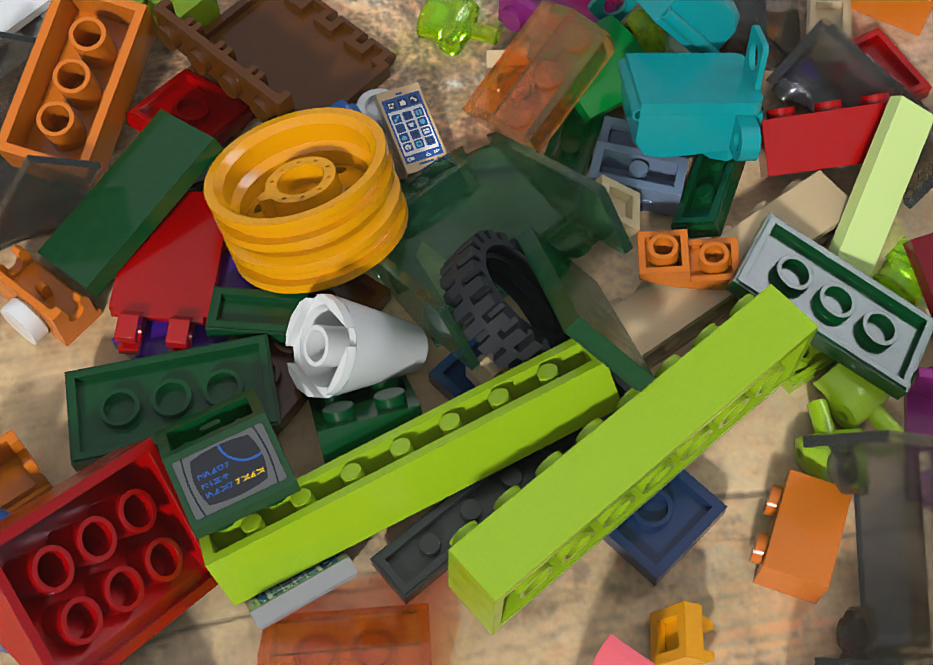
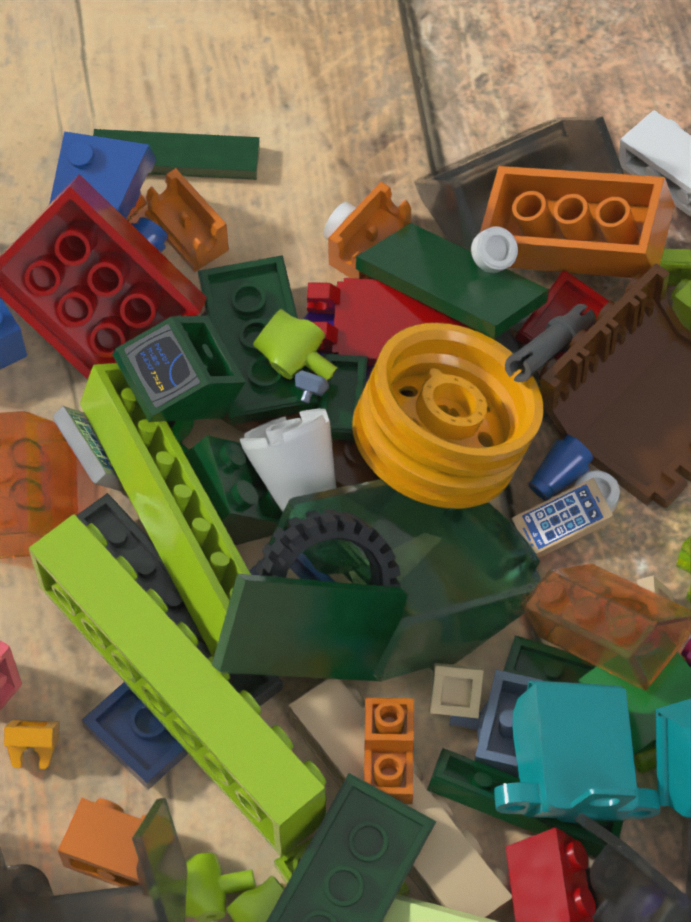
camera: 90 degrees right, 0 degrees up
(107, 149) = (494, 249): none -> white tile
(200, 348) = (292, 345): none -> lime piece
(218, 104) = (549, 343): none -> dark grey pin
(252, 333) = (310, 385): none -> sand blue rock

